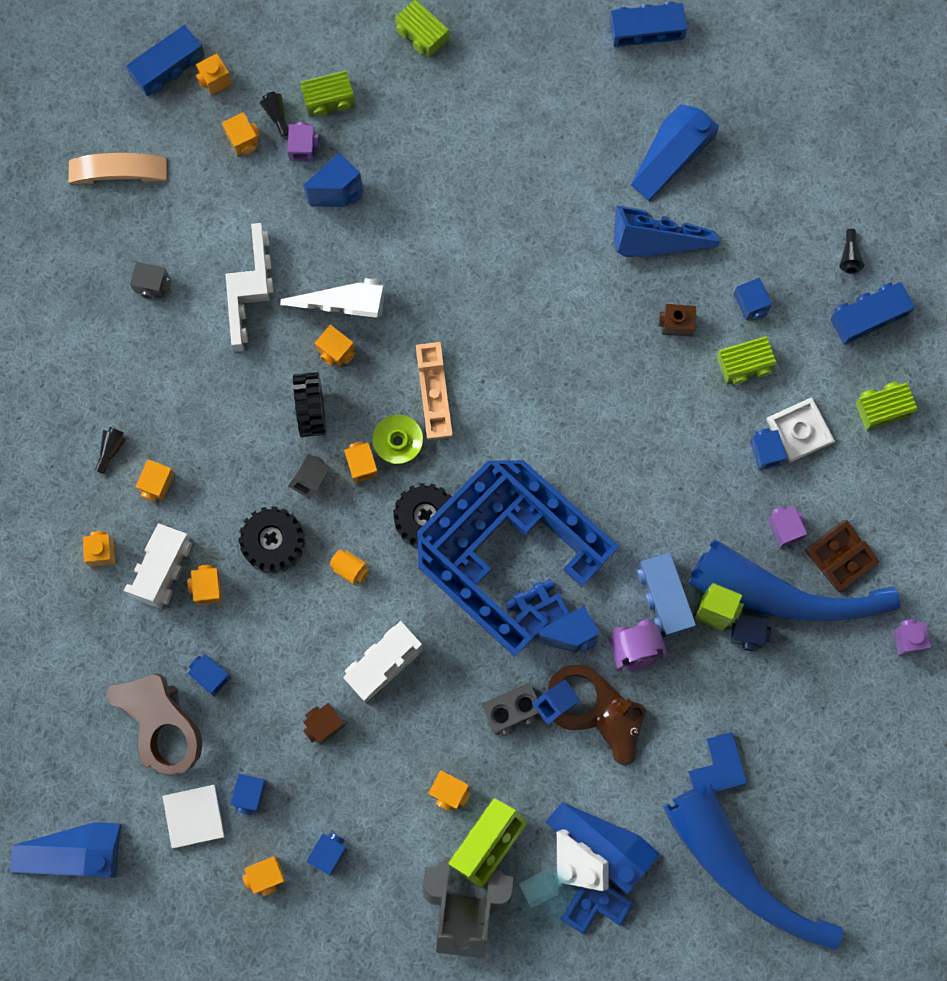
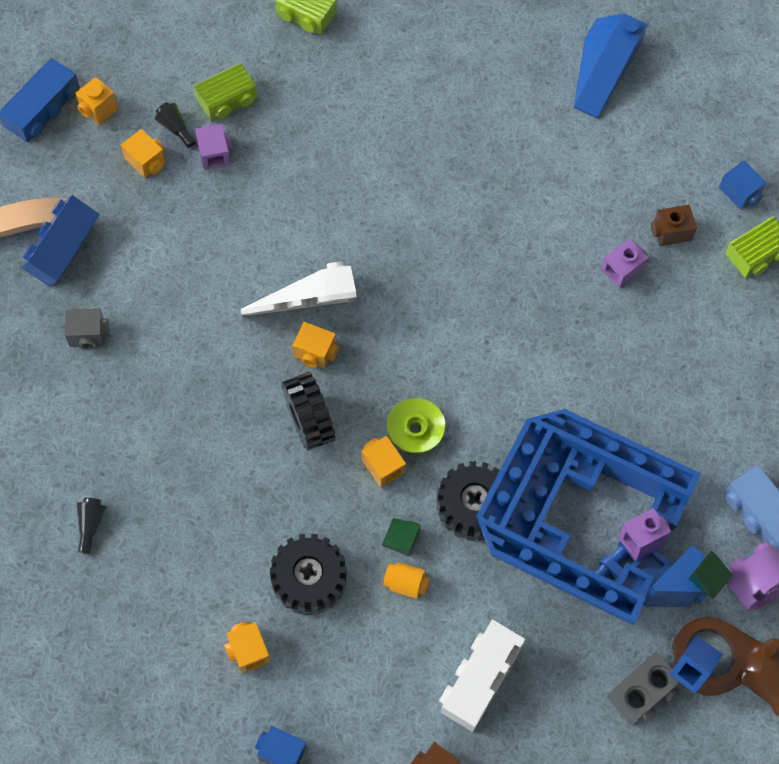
camera: 20 degrees left, 10 degrees down
(99, 549) = (109, 640): light orange brick -> none
(148, 196) = (59, 240): none -> blue brick
(154, 481) = (153, 544): light orange brick -> none
(159, 566) = (187, 640): white wedge -> none
(248, 287) = (199, 307): white bracket -> none
(309, 475) = (329, 491): dark grey brick -> none
(334, 184) = (264, 177): blue slope -> none
(358, 529) = (401, 536): none -> dark green slope
(434, 391) = (437, 364): light nougat slope -> none
(554, 584) = (645, 534): none -> medium lavender brick
(588, 635) = (711, 575): none -> dark green slope
(623, 343) = (624, 263): none -> medium lavender brick
(644, 236) = (606, 152): blue wedge -> none

